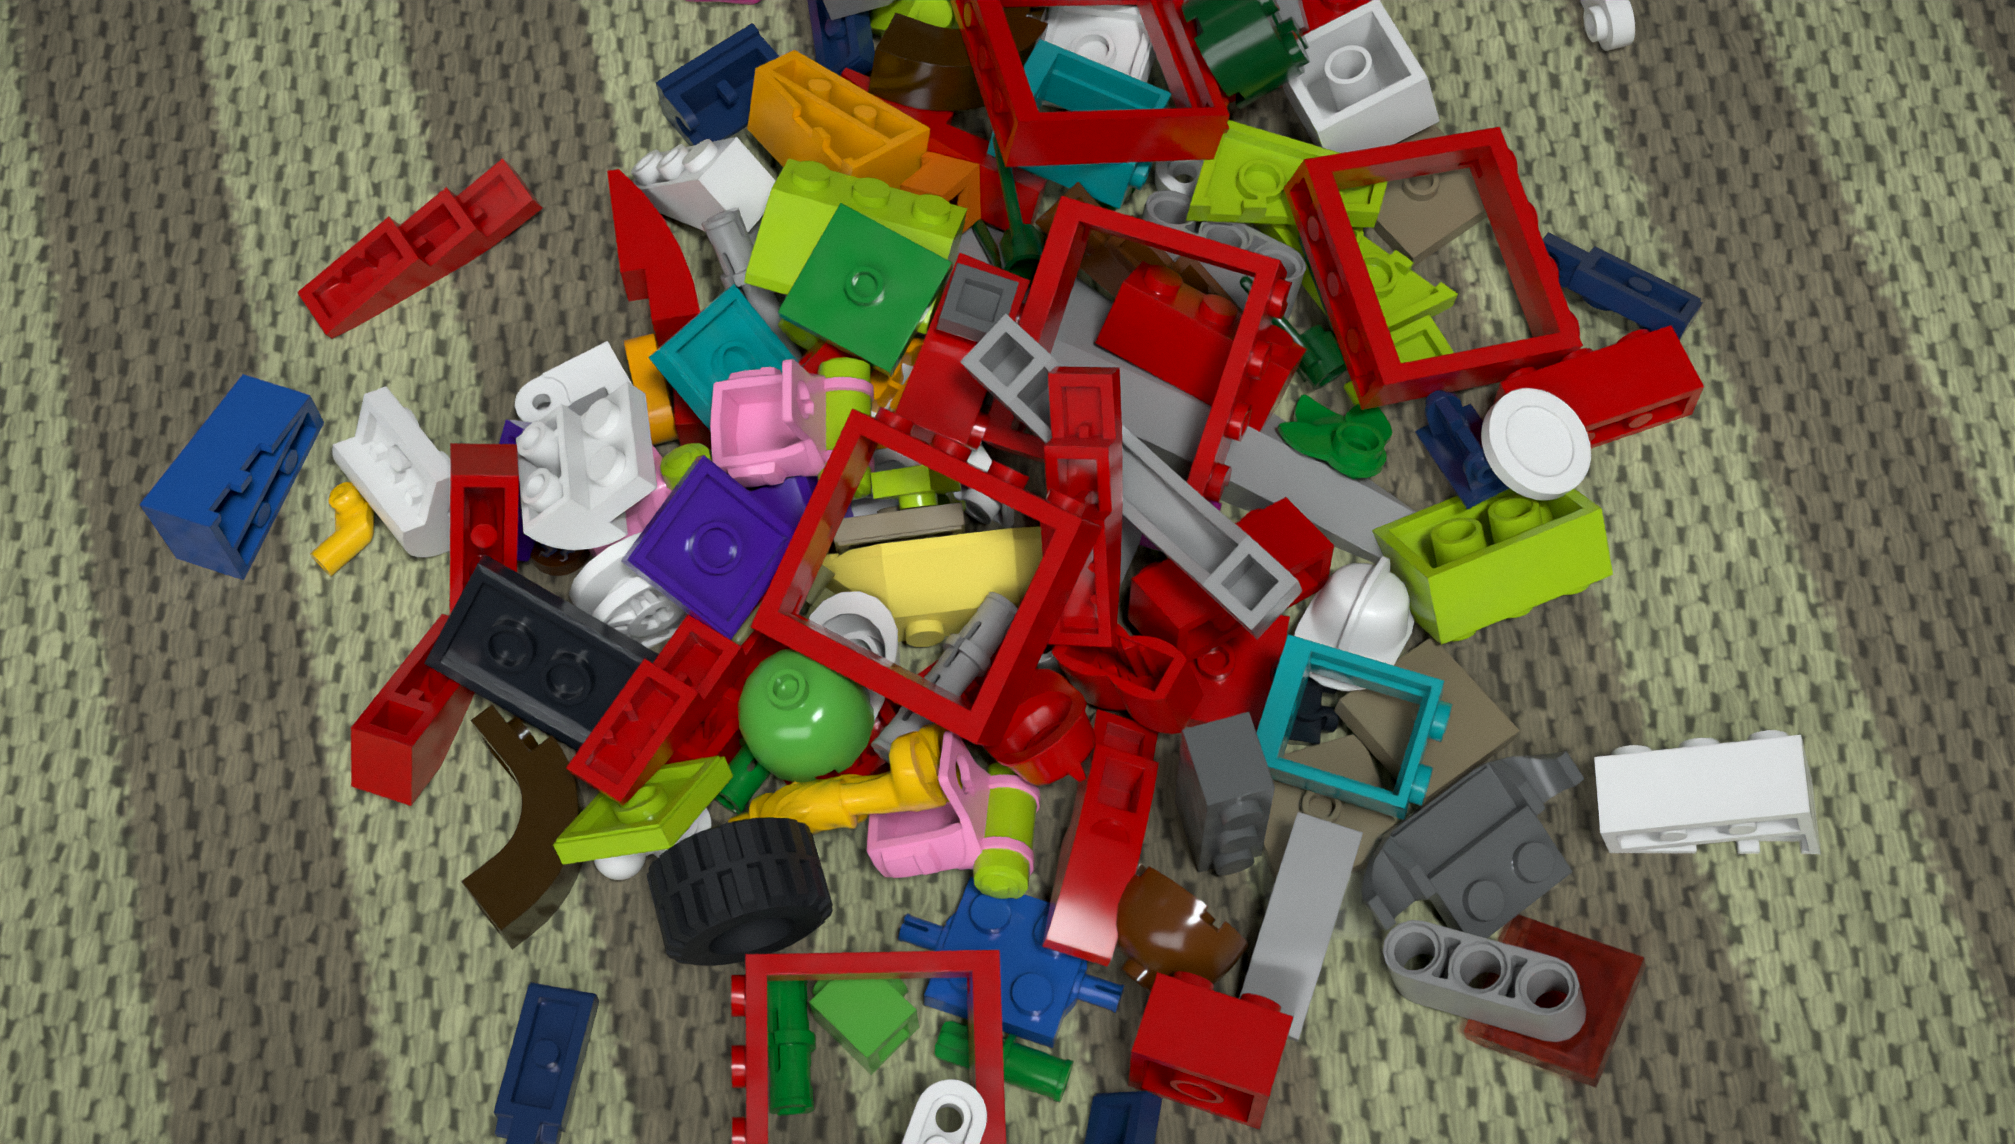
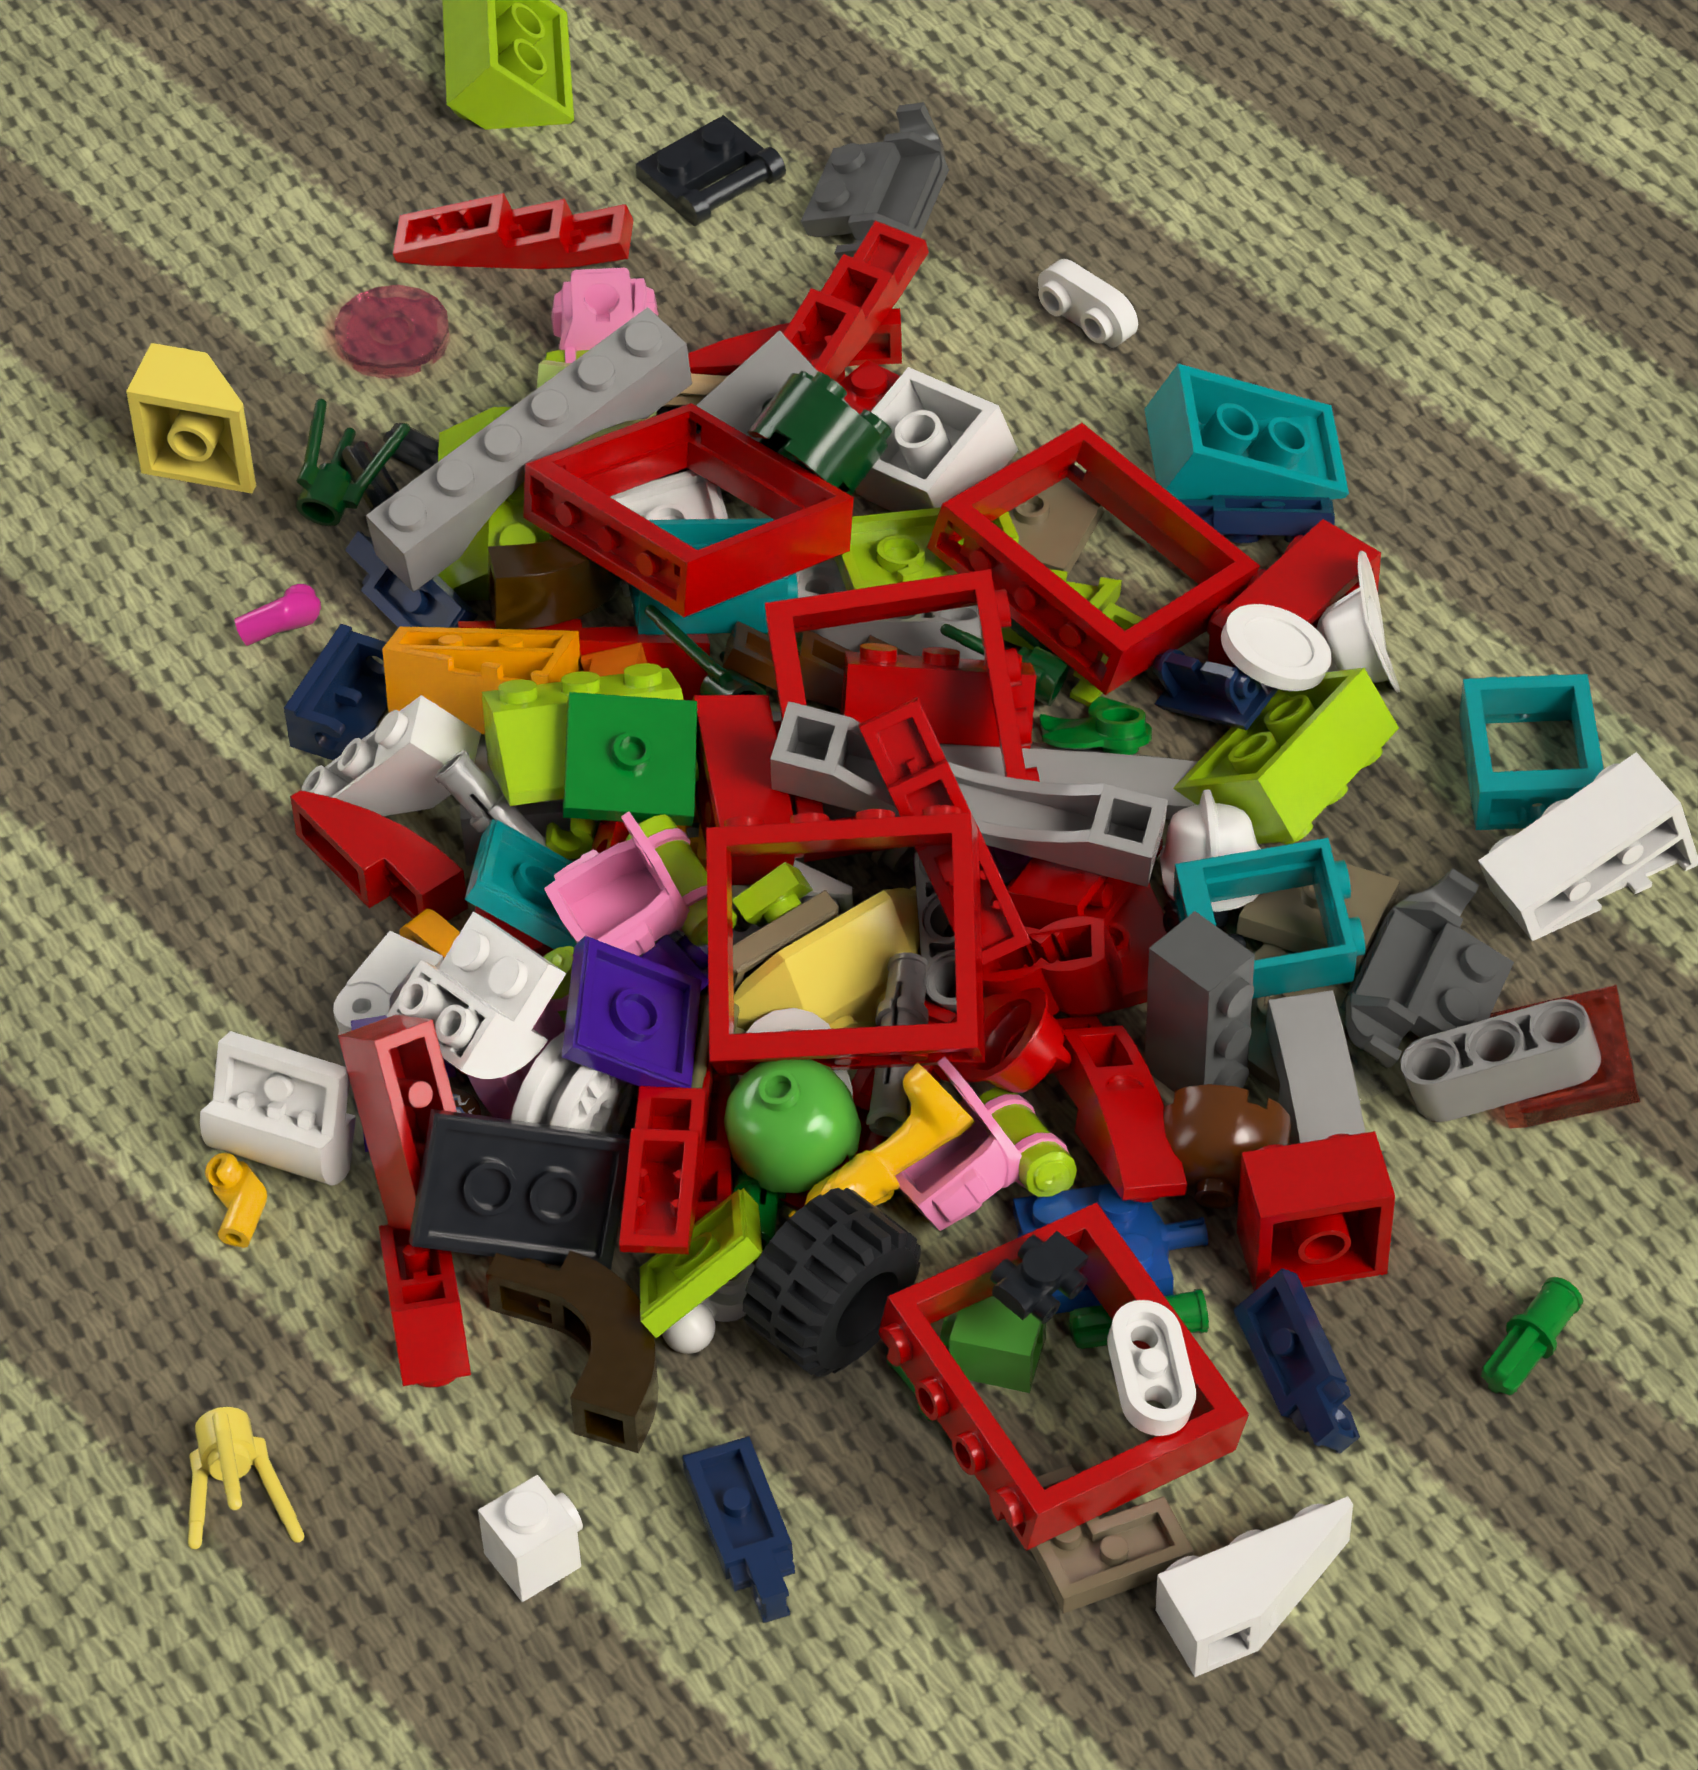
camera: 30 degrees left, 15 degrees down
(181, 767) = (227, 1453): none -> light yellow plant
(234, 476) = (106, 1197): blue wedge -> none
(356, 994) = (531, 1537): none -> white brick
(429, 245) = (141, 947): red slope -> none
(904, 1001) = (1043, 1270): none -> black piece
(975, 302) = (742, 723): dark grey plate -> none
(1633, 456) = (1356, 630): none -> white piece
(1655, 206) = (1241, 440): none -> teal slope
(1701, 711) = (1507, 797): none -> teal window

